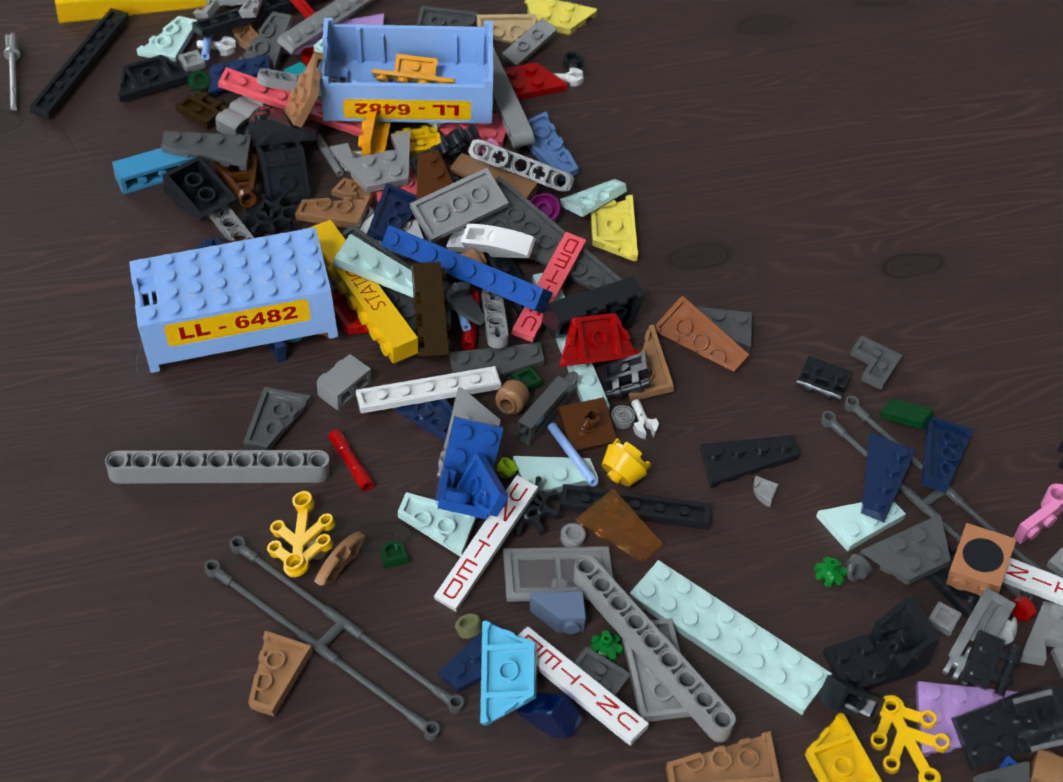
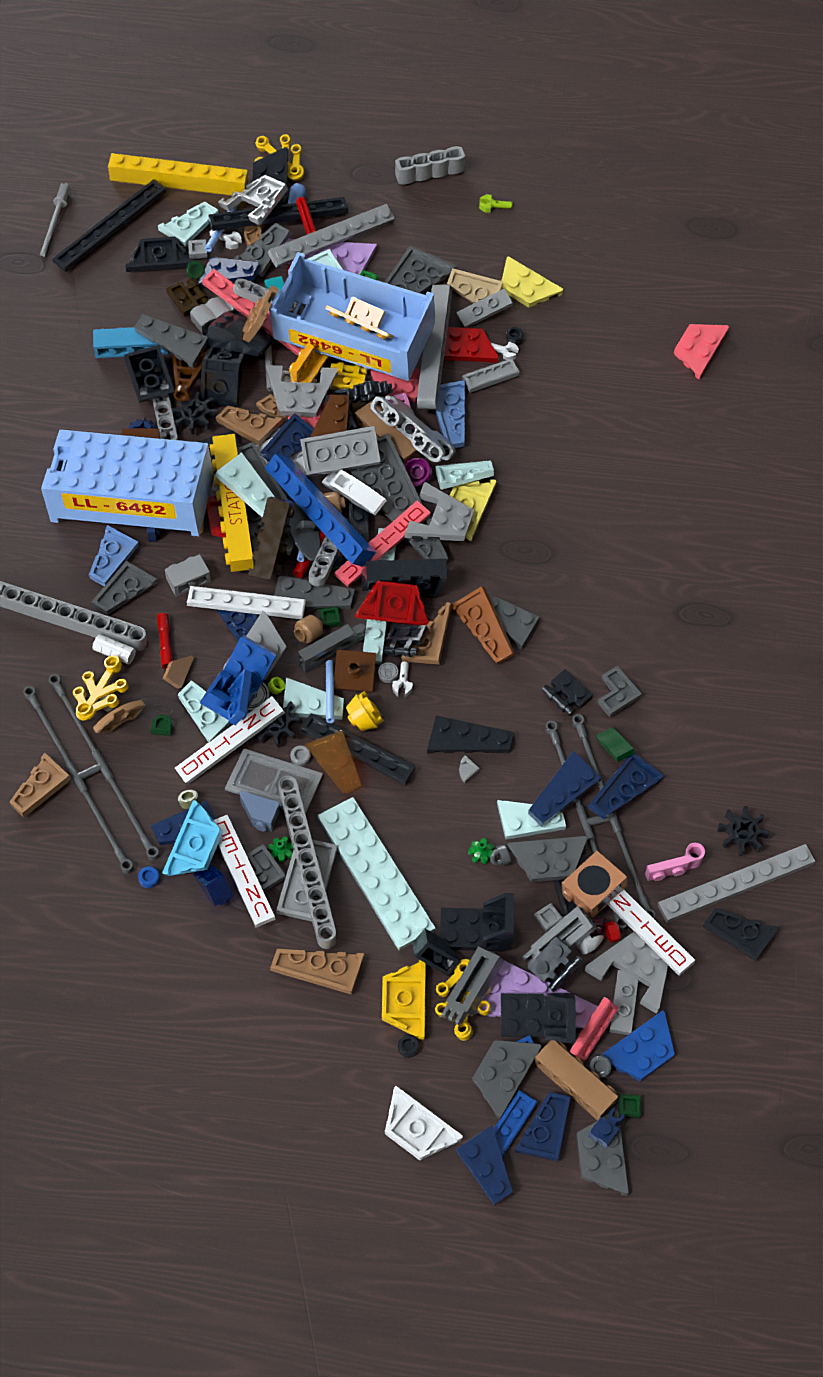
camera: 25 degrees right, 10 degrees up
(243, 387) = (113, 553): none -> medium blue wing
(290, 485) = (111, 647): none -> white axle
(384, 488) = (177, 671): none -> medium nougat tile
(465, 734) = (148, 877): none -> blue tile
(569, 101) = (490, 375): none -> light grey plate
(605, 240) = (449, 519): none -> light grey wing
(757, 27) = (699, 346): none -> coral wing
(917, 713) = (475, 979): none -> dark grey hinge

